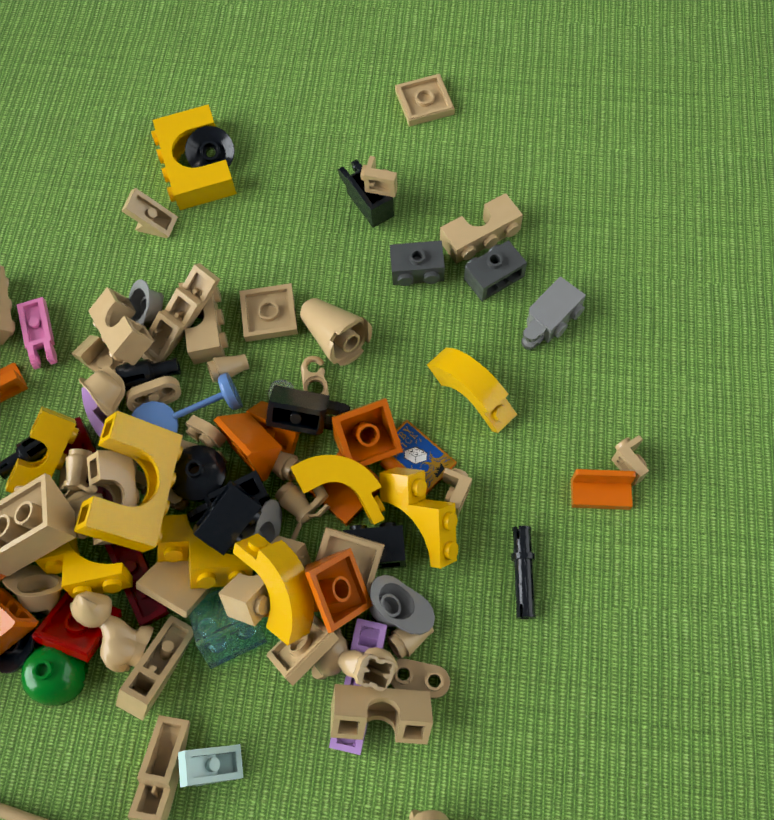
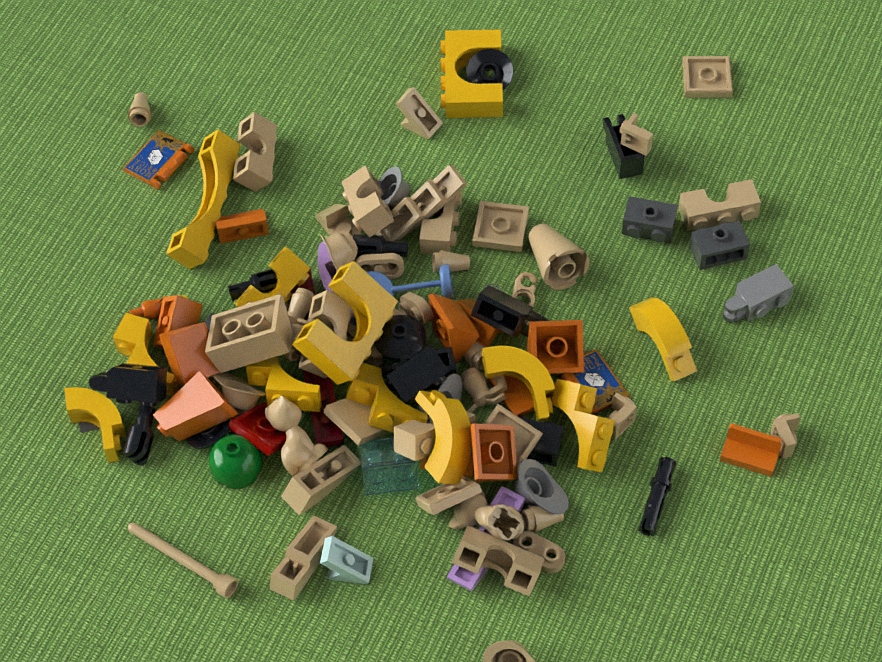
camera: 15 degrees right, 10 degrees down
(37, 331) = (290, 187): bright pink hinge -> none

